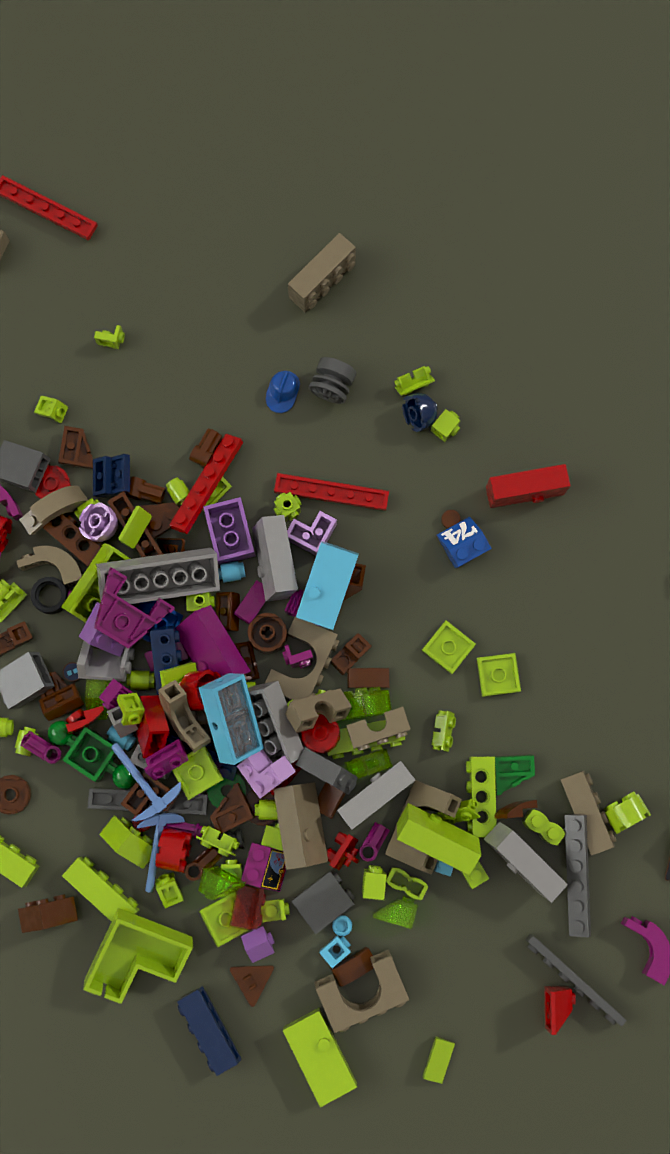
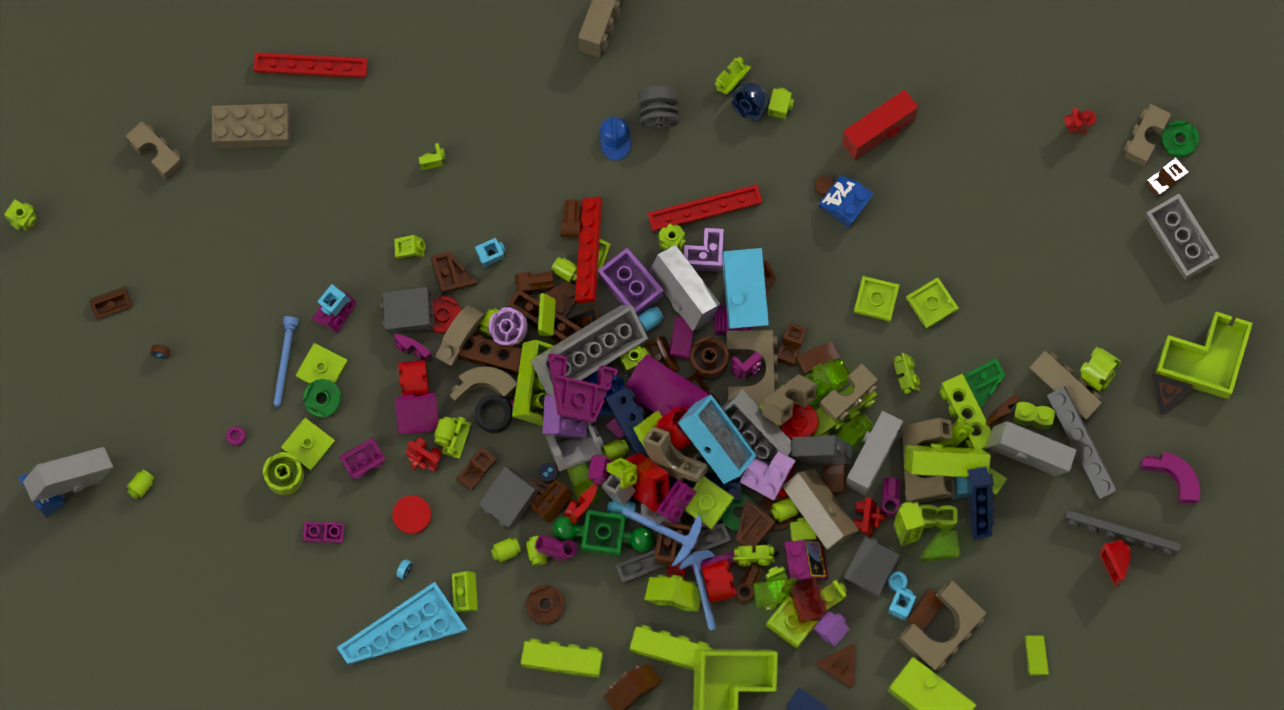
camera: 25 degrees left, 5 degrees down
(111, 475) = (497, 282): dark blue brick -> none
(113, 443) = (483, 250): none -> medium azure brick
(168, 889) = (729, 620): lime bracket -> none
(452, 893) = (980, 502): none -> dark blue brick

